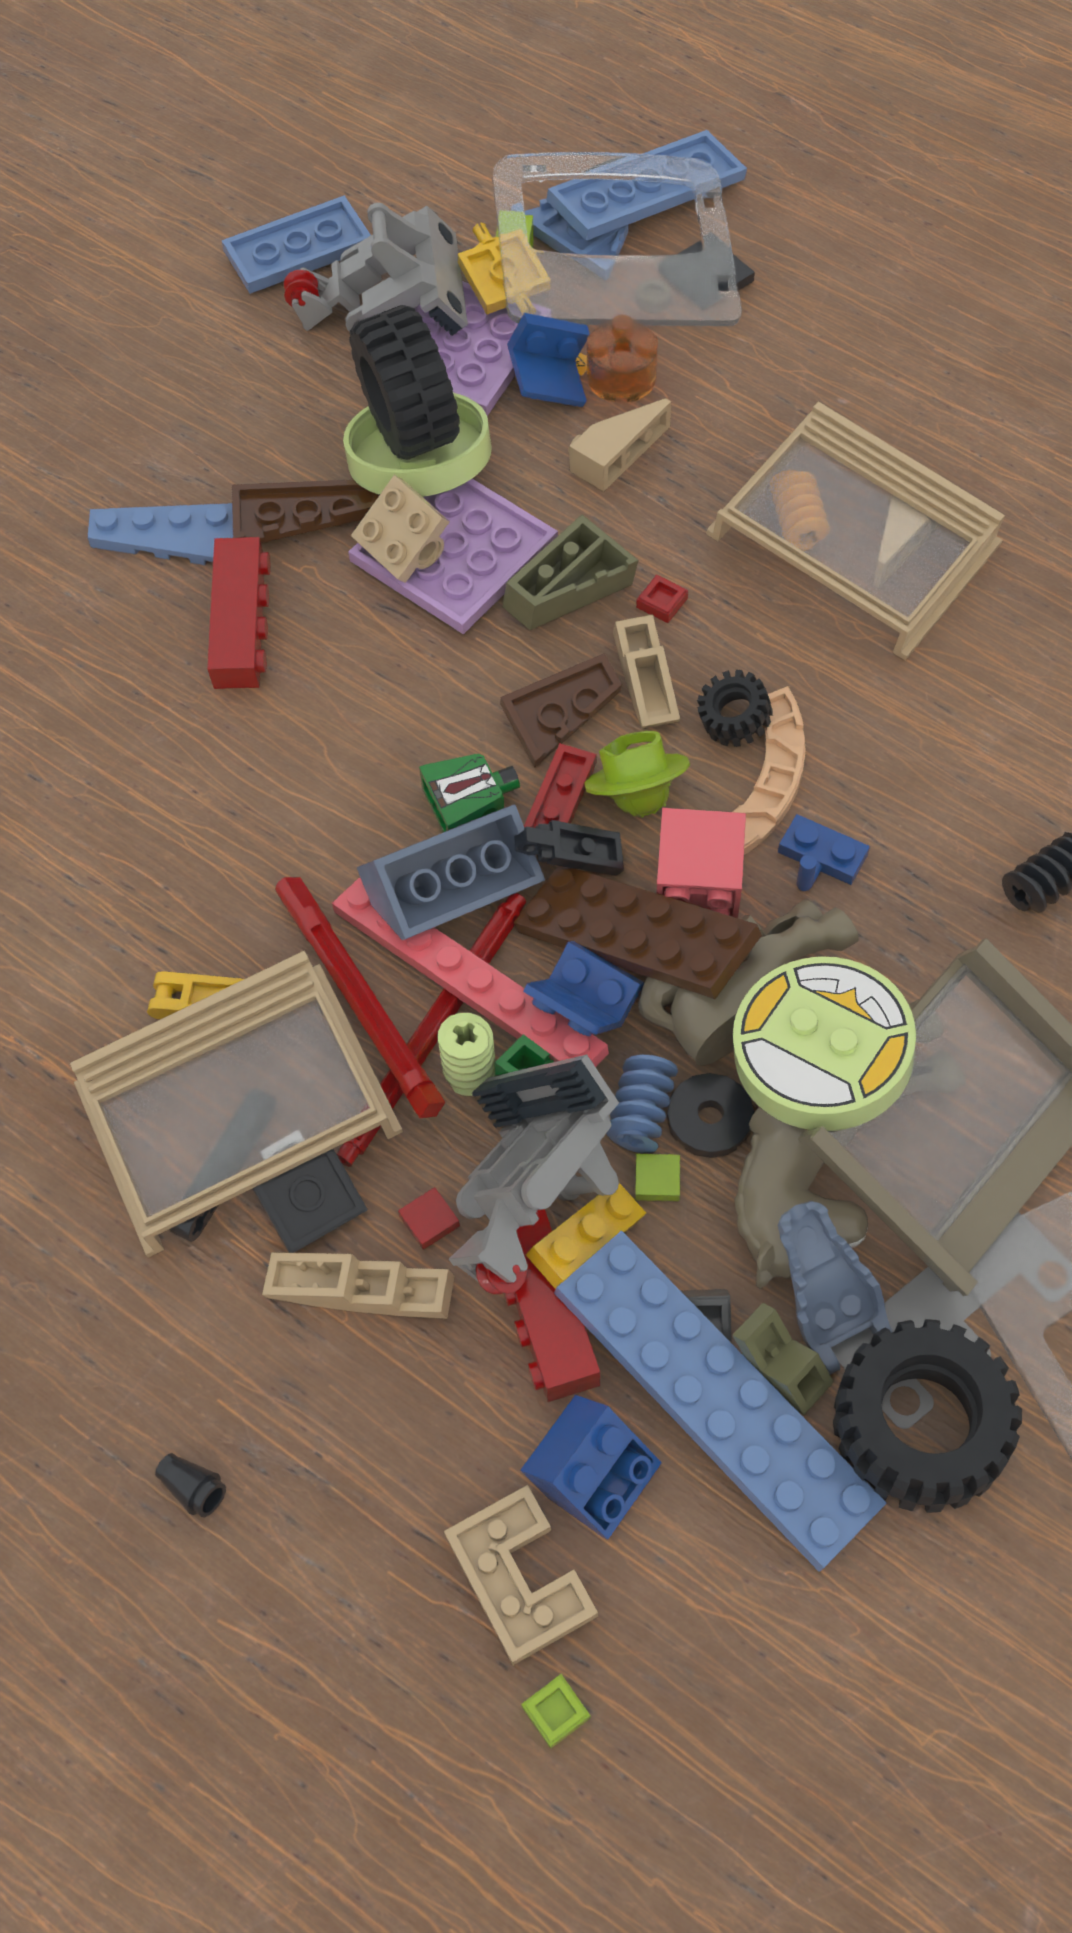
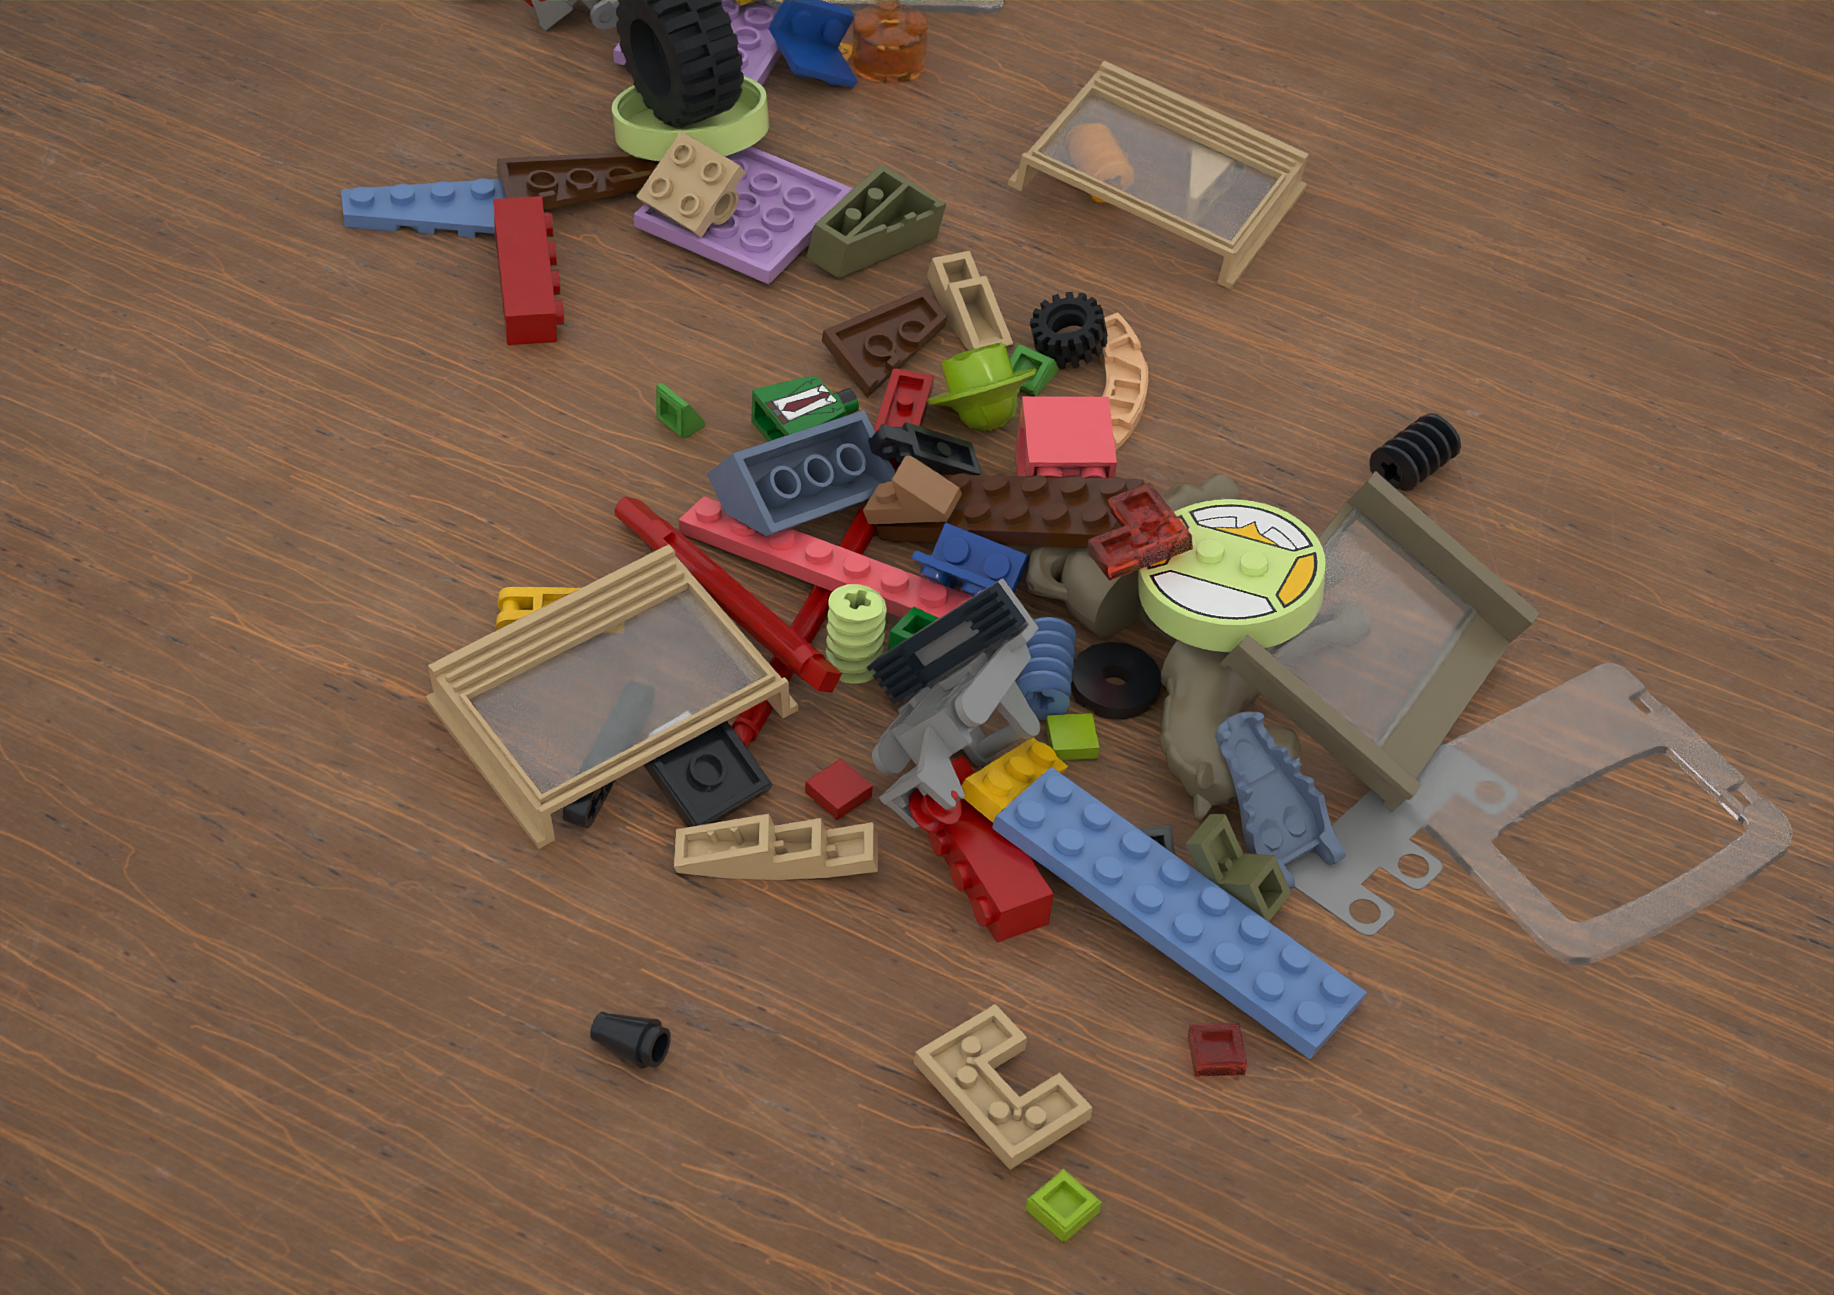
camera: 15 degrees left, 15 degrees down
(352, 781) = (676, 412): none -> bright green slope
(546, 905) = (912, 496): none -> medium nougat slope
(591, 1465) = (1058, 982): blue slope -> none
(617, 443) = (898, 113): tan slope -> none
(662, 598) = (971, 239): red tile -> none
(693, 745) = (1027, 358): none -> bright green slope
(732, 1549) = (1217, 1049): none -> clear red tile
(746, 1002) = (1146, 535): none -> clear red plate
(821, 851) = (1181, 451): blue plate -> none
(962, 1369) = (1406, 861): black tyre -> none

